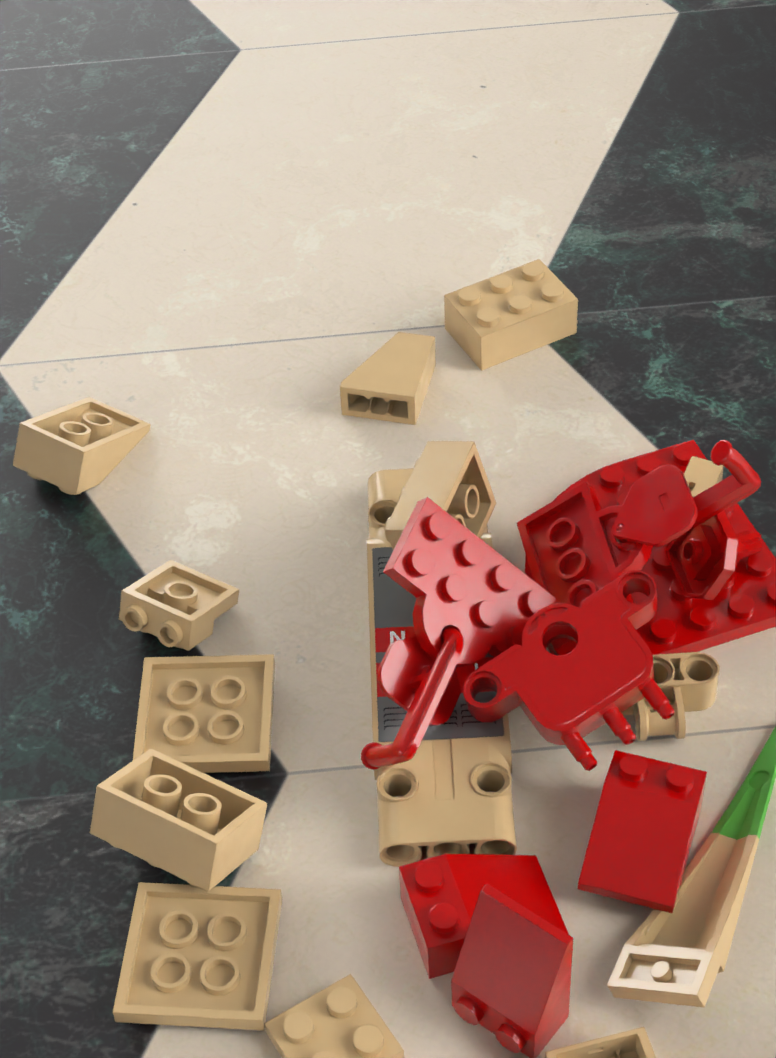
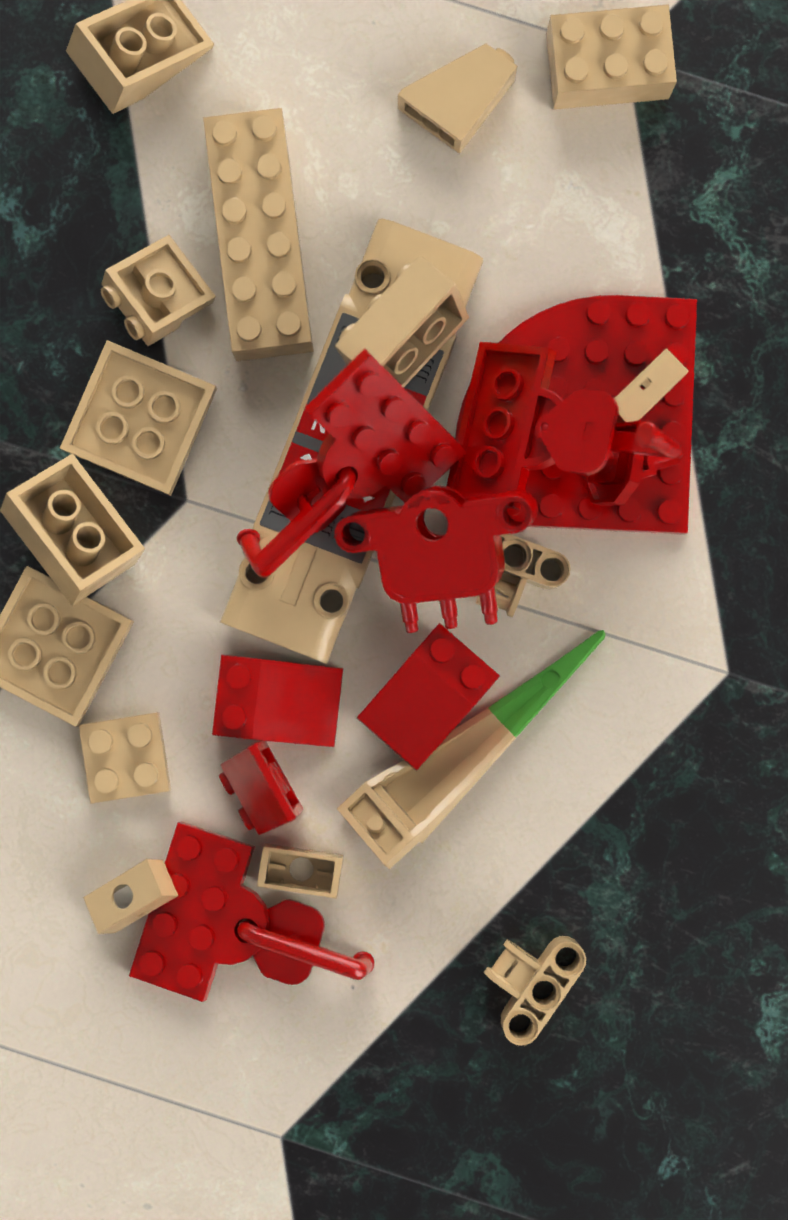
camera: 20 degrees right, 40 degrees up
(263, 532) = (258, 234): none -> tan brick

